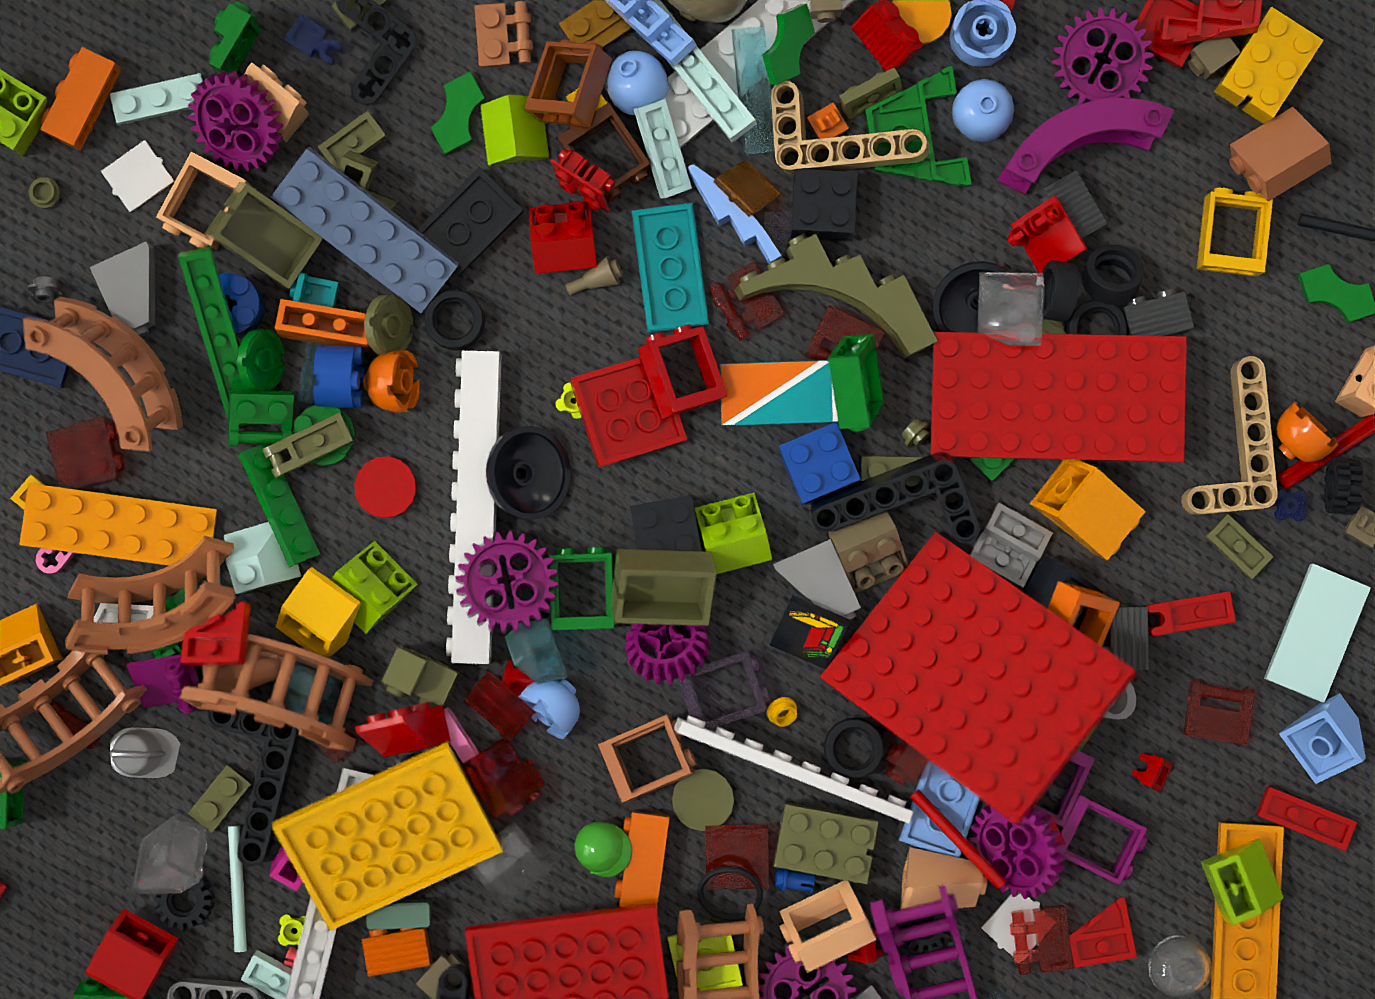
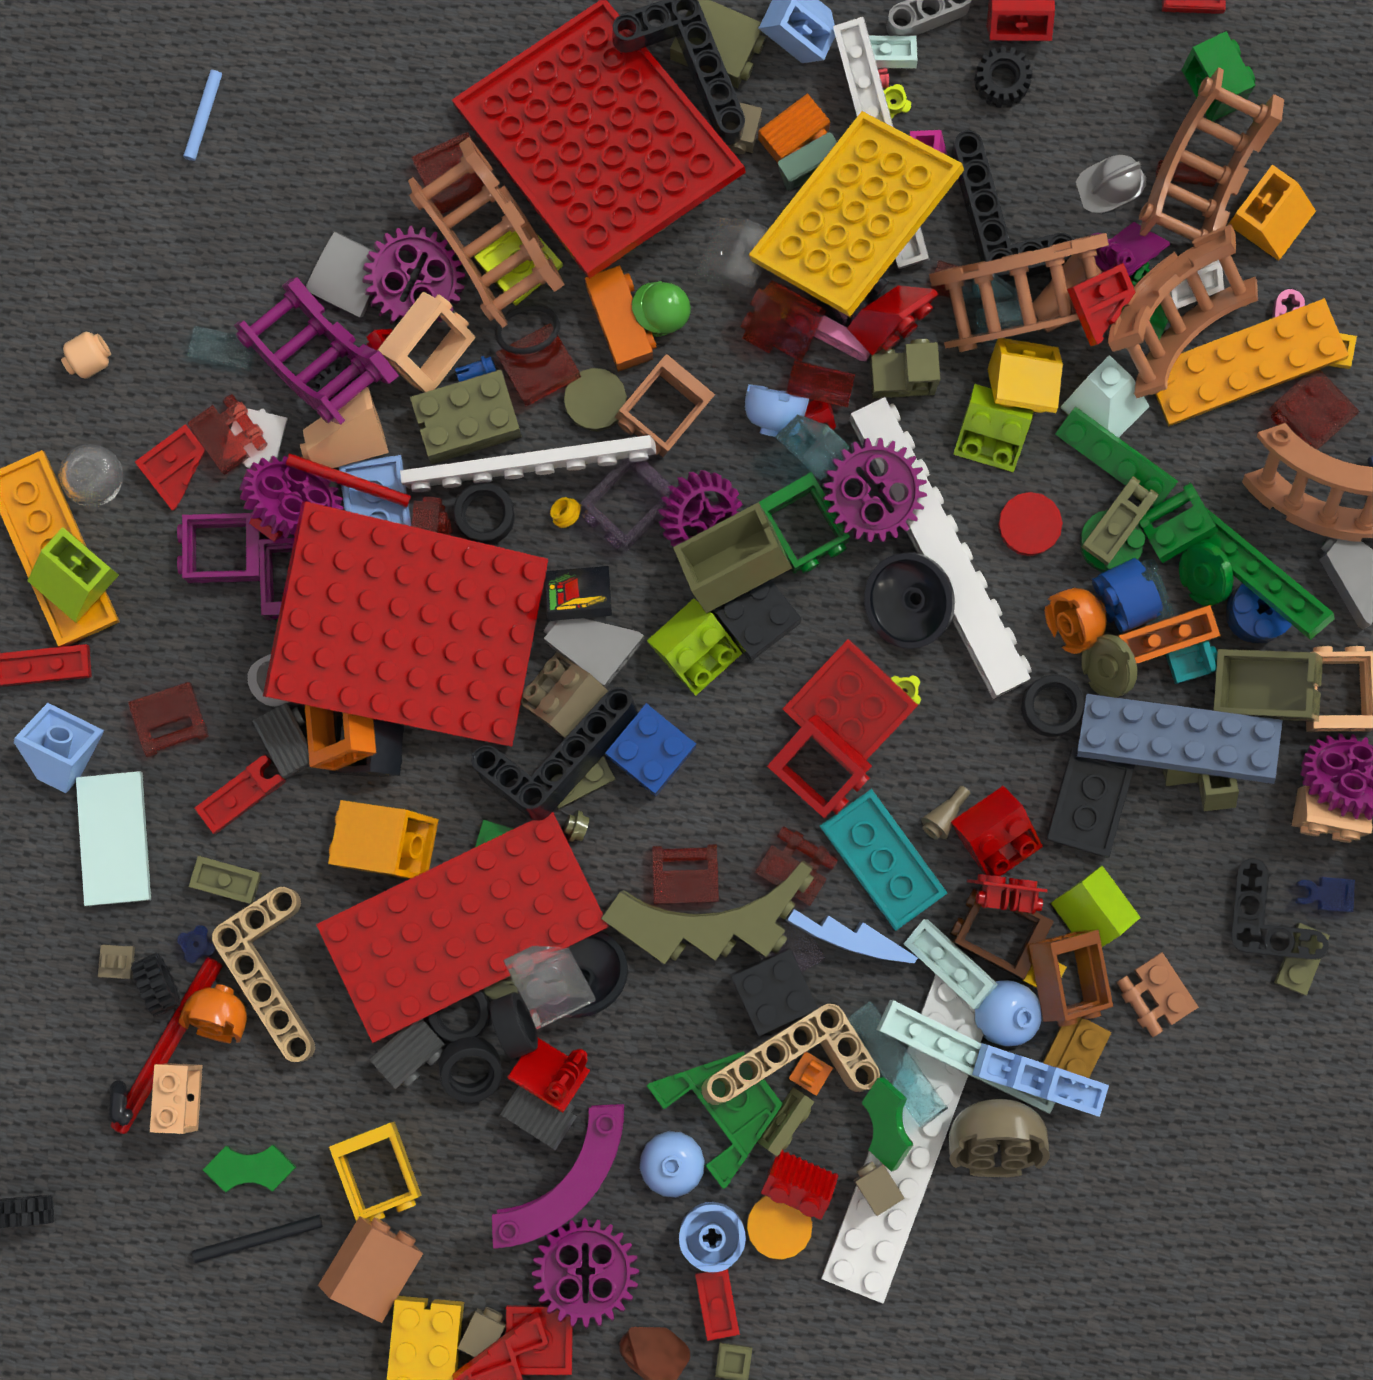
camera: 150 degrees right, 5 degrees down
(171, 857) = (1035, 103): clear slope -> none
(220, 798) = (1021, 179): olive plate -> none
(237, 890) = (961, 108): light aqua bar -> none
(357, 136) = (1237, 823): olive plate -> none
(453, 127) = (1159, 913): green tile -> none
(747, 188) = (852, 969): clear orange piece -> none
(777, 393) = (717, 798): tile -> none
(856, 381) = (656, 838): green window -> none
(1010, 545) = (436, 769): light grey slope -> none
(1156, 772) = (198, 634): red tile -> none

